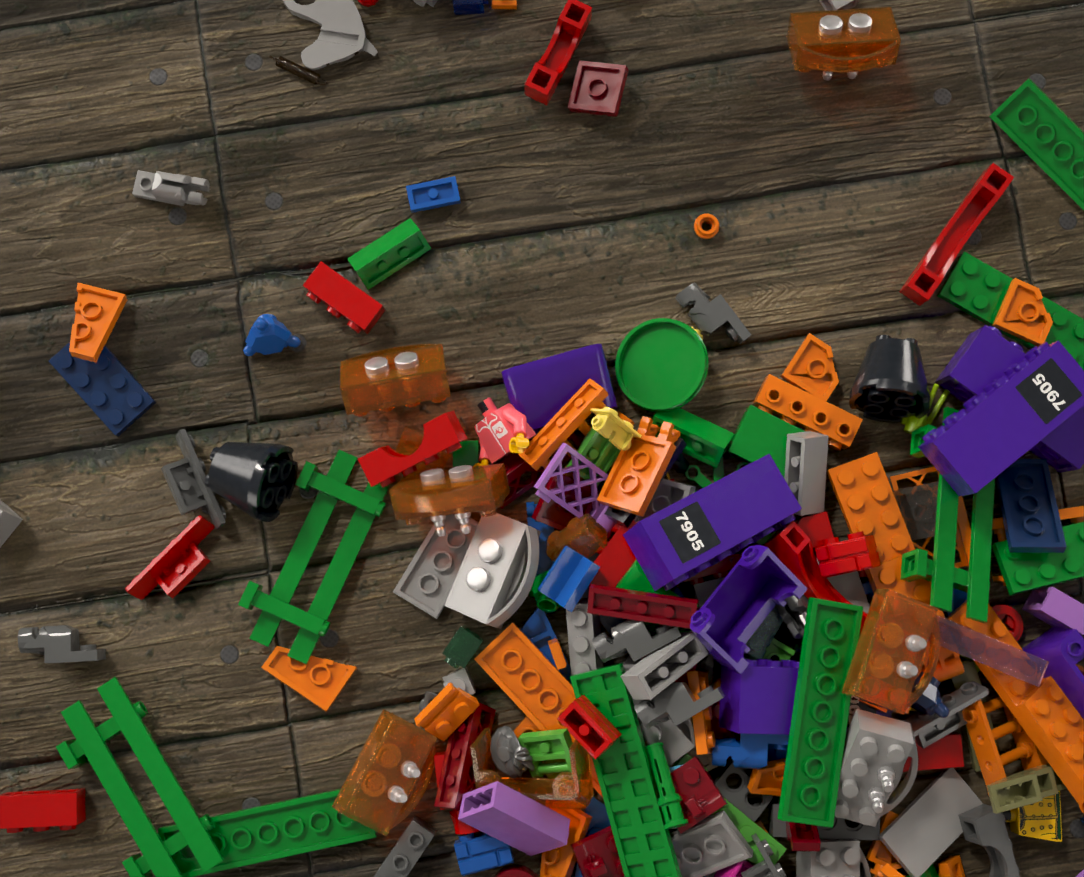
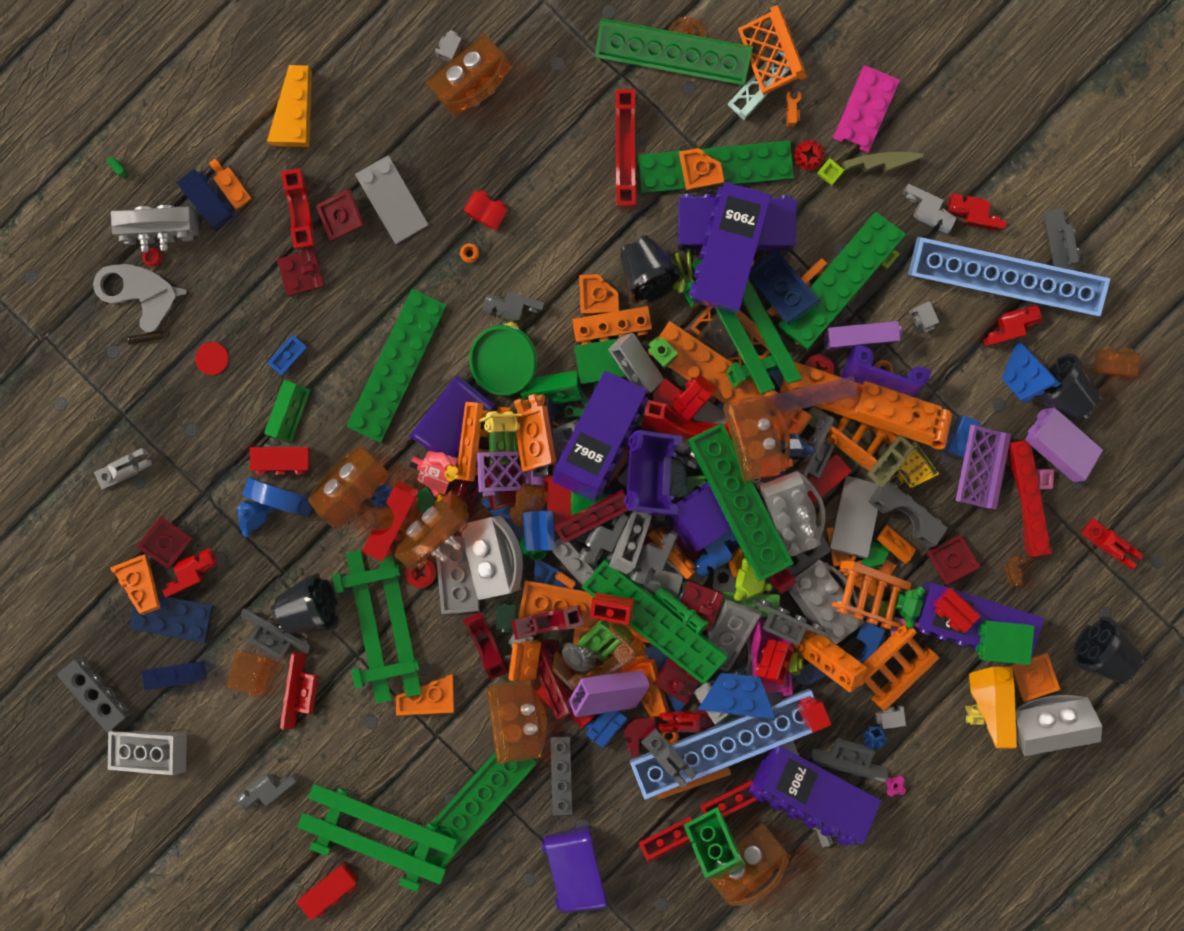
camera: 40 degrees left, 5 degrees up
(56, 445) = (173, 675): none -> clear blue brick
(138, 504) = (249, 673): none -> clear orange hinge
(155, 296) = (164, 542): none -> dark red hinge
(158, 348) = (189, 572): none -> red plate
(310, 336) = (277, 497): none -> blue arch
(351, 142) = (211, 358): none -> red piece
(398, 541) = (423, 581): none -> red gear
(416, 662) = (486, 645): none -> dark red arch
(421, 414) = (381, 495): none -> blue gear
(505, 686) = (547, 620): none -> dark red arch
(511, 119) = (300, 272): none -> dark red hinge
(540, 289) = (396, 366): none -> green plate
(664, 110) = (391, 199): none -> light grey slope
(757, 194) = (485, 210): none -> red brick
(762, 809) = (747, 585): none -> lime rock
(845, 489) = (667, 357): none -> bright green brick

